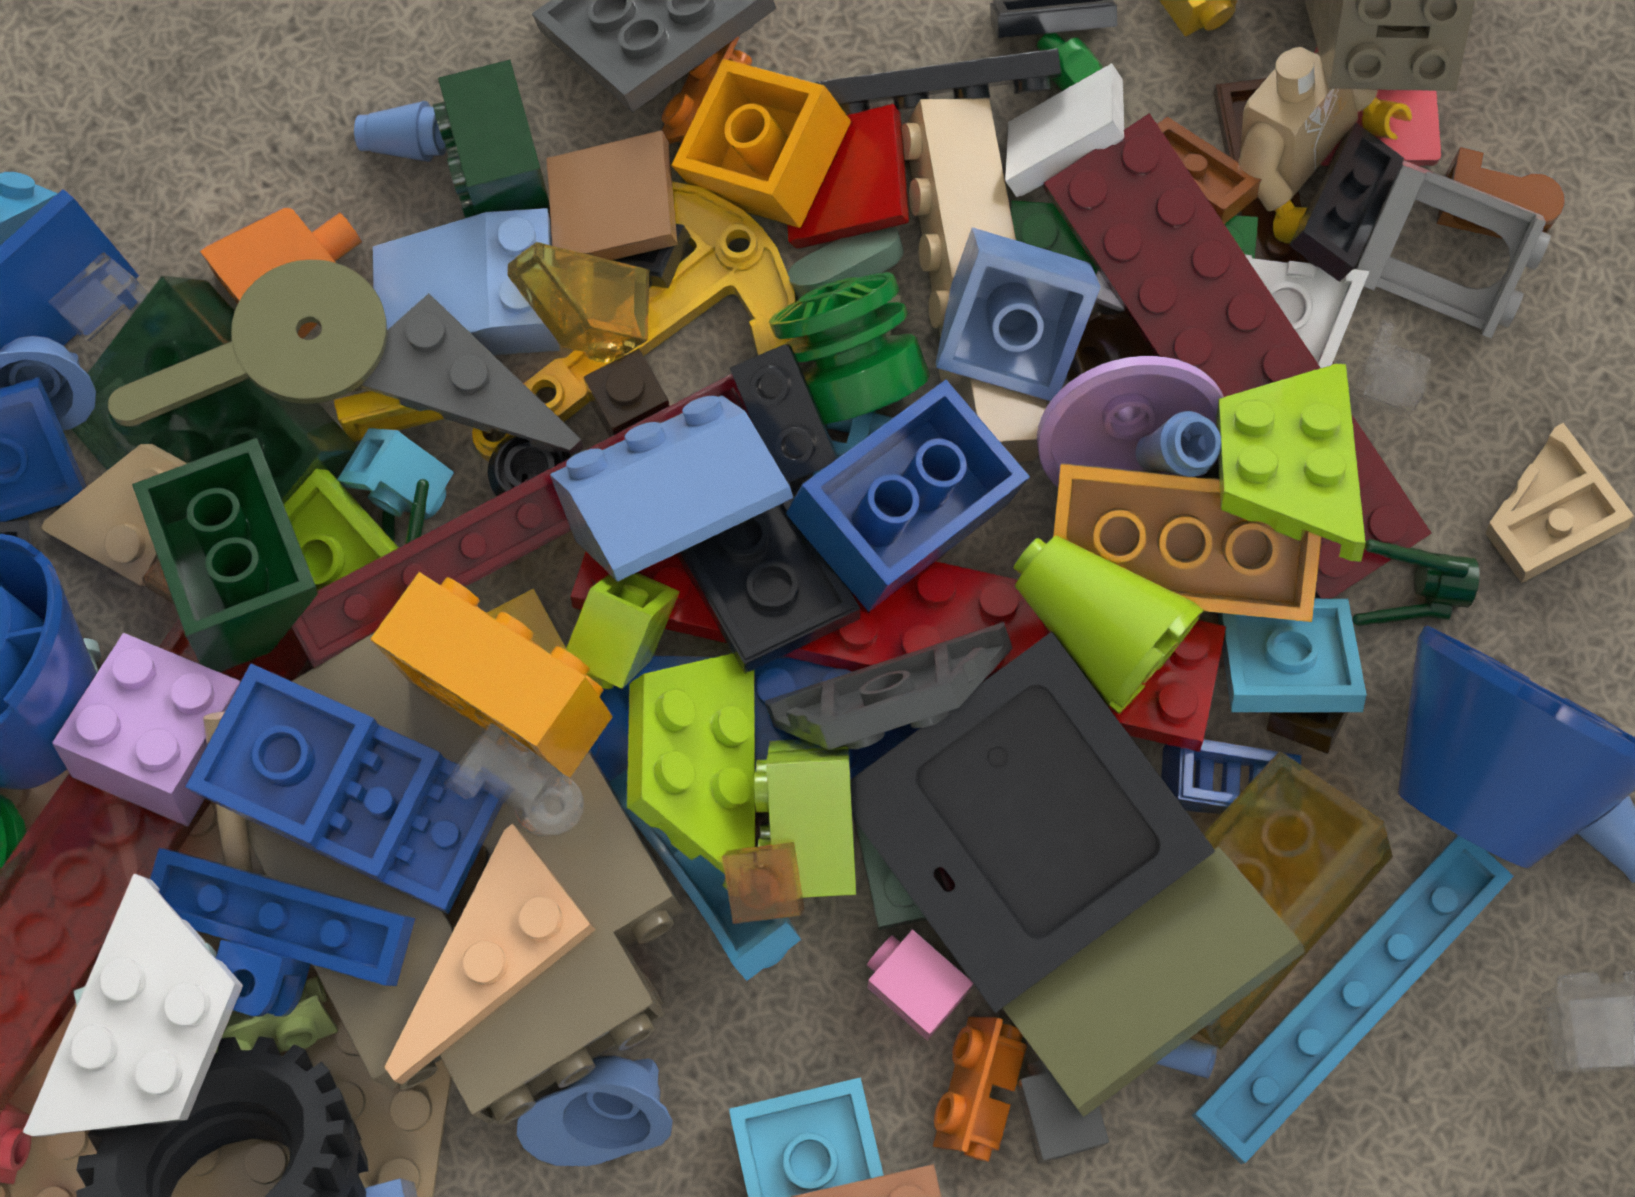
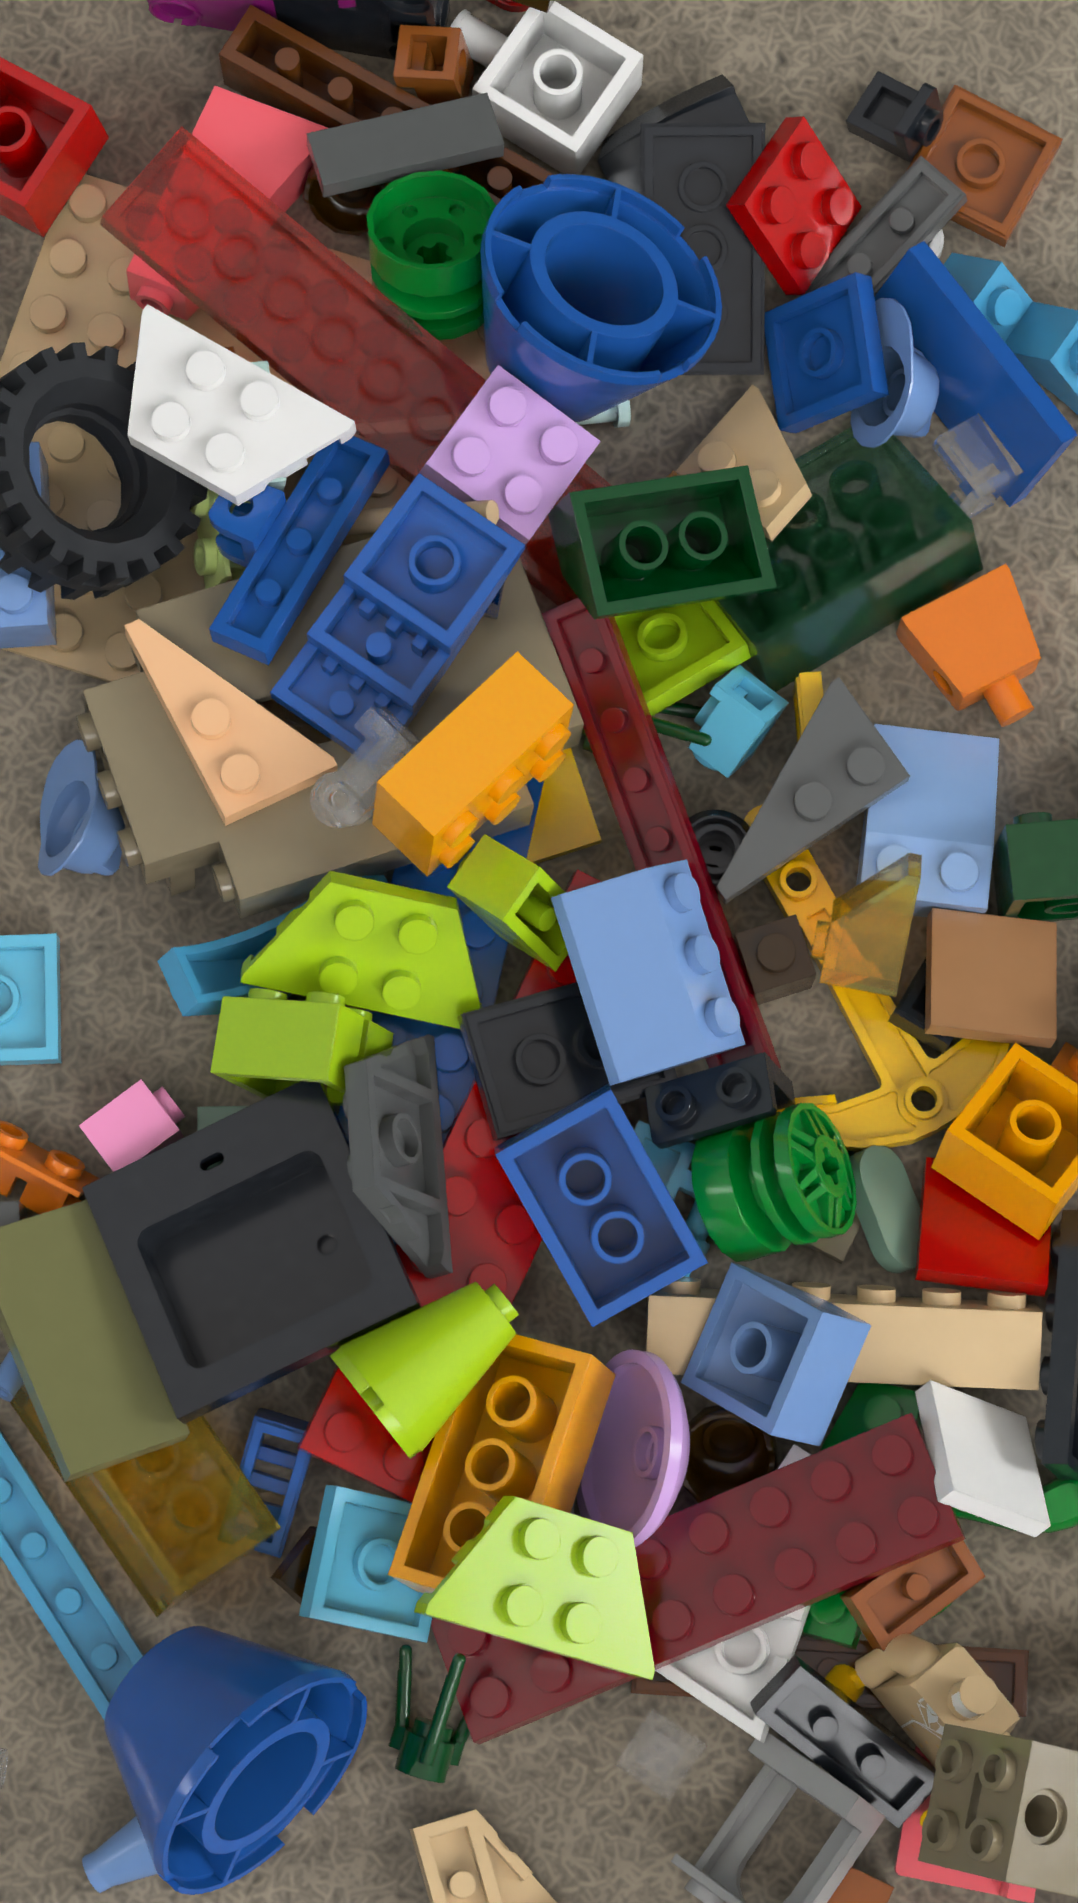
camera: 100 degrees right, 5 degrees up
(268, 344) = (874, 612): olive piece -> none
(763, 882) = (235, 985): clear orange plate -> none
(1180, 446) = (586, 1480): medium blue cone -> none

